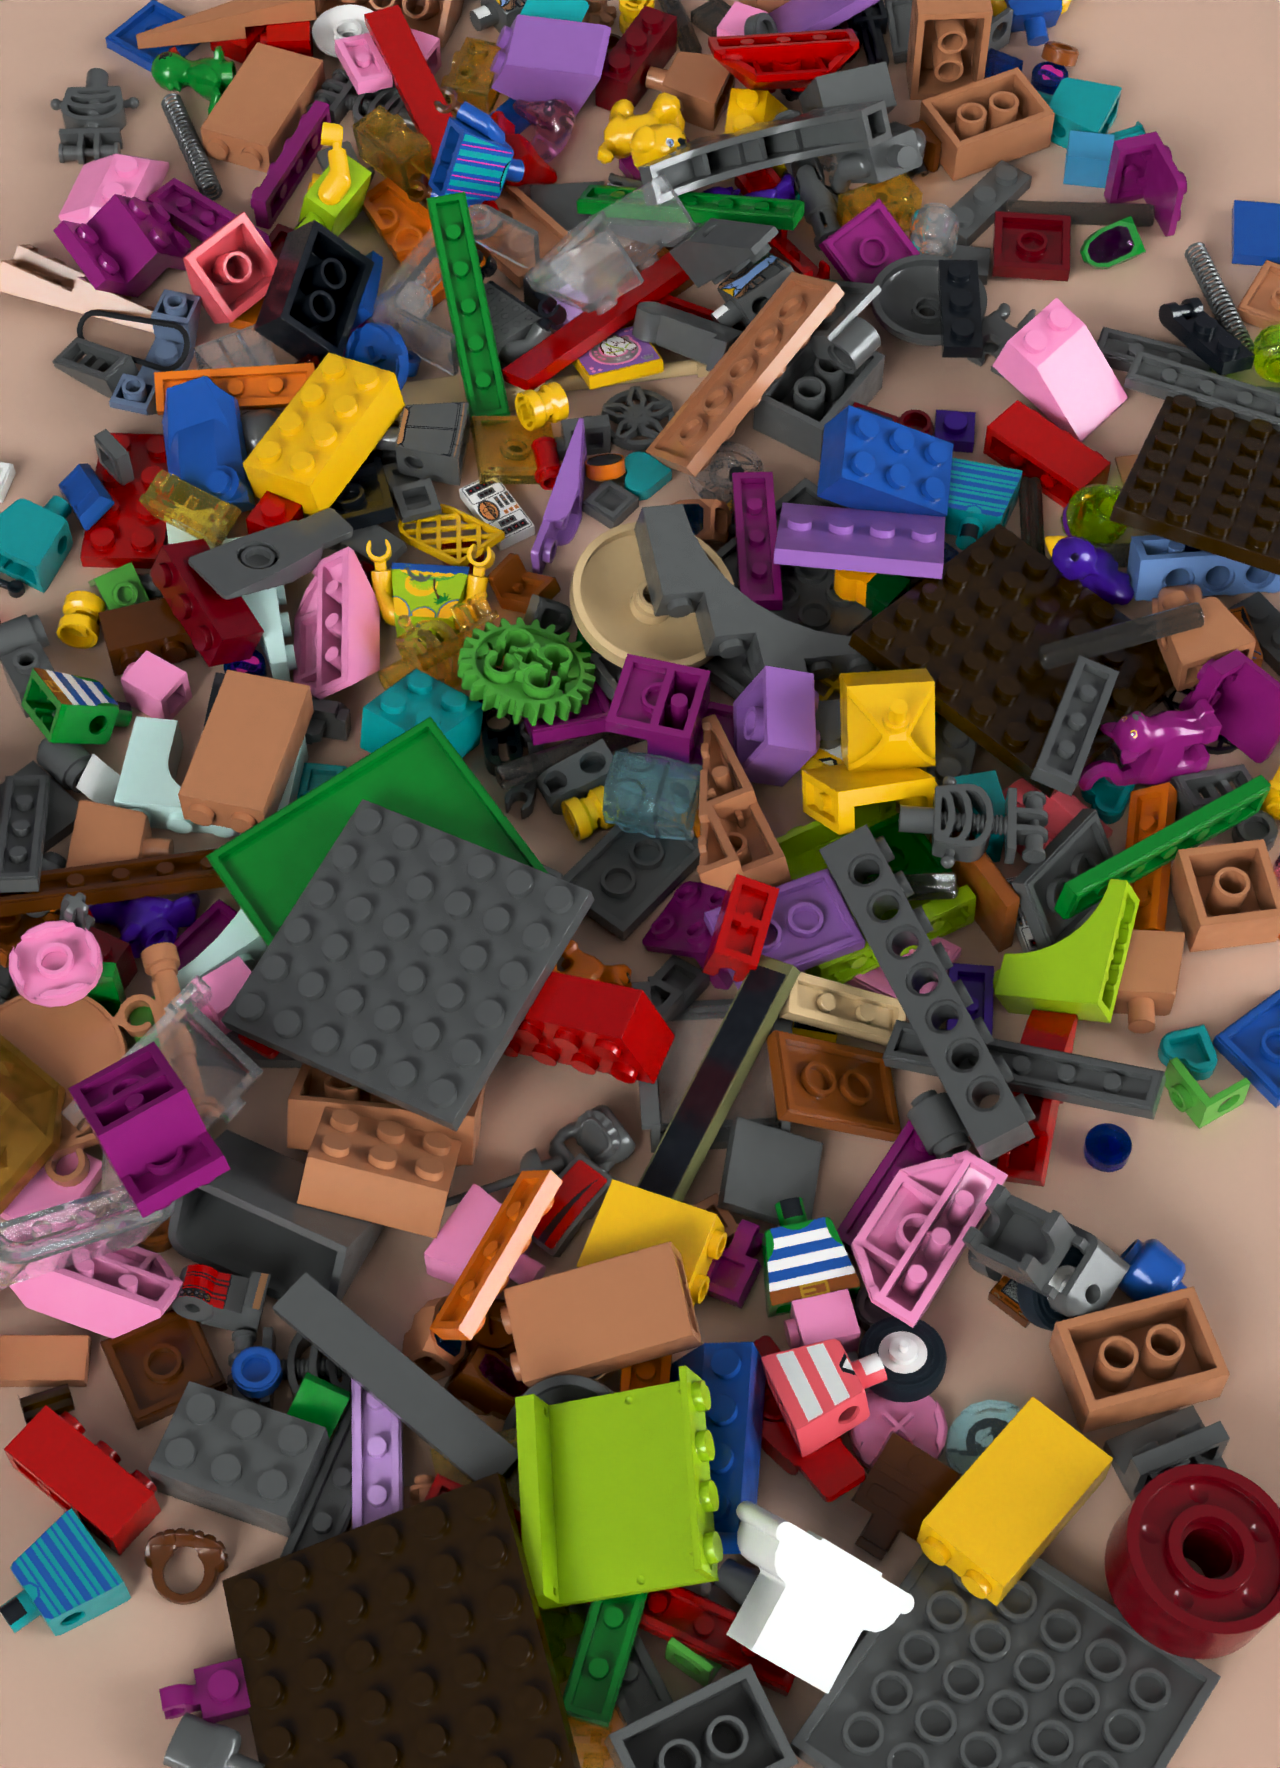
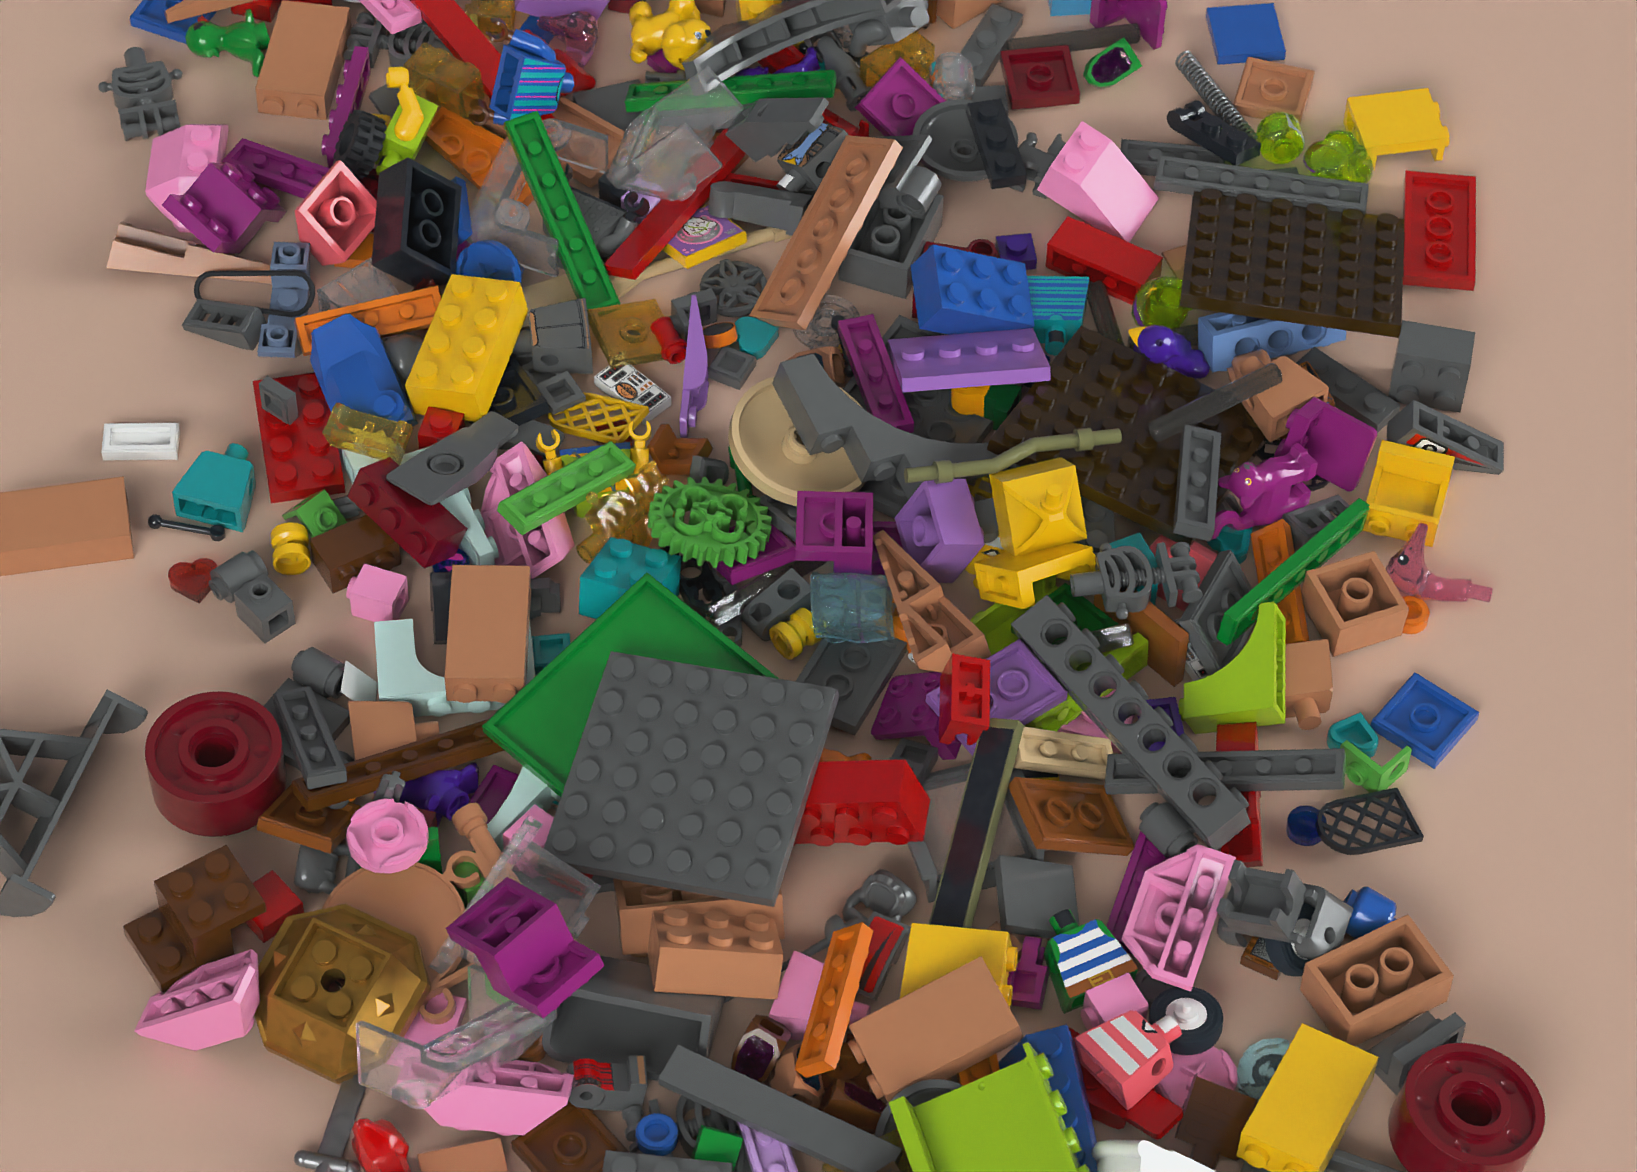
camera: 15 degrees left, 5 degrees down
(73, 708) = (329, 627): green torso -> none
(86, 495) = (259, 438): blue tile -> none
(184, 144) = (235, 104): dark grey piece -> none
(282, 200) = (360, 142): none -> black tyre
(379, 605) = (566, 487): none -> bright green tile
(402, 1292) = (760, 1048): none -> rock
(542, 406) = (646, 292): yellow wheel -> none
(953, 652) = (944, 471): none -> olive bar
(1232, 1185) = (1414, 836): none -> black window
(1256, 828) = (1361, 544): dark grey tile -> none

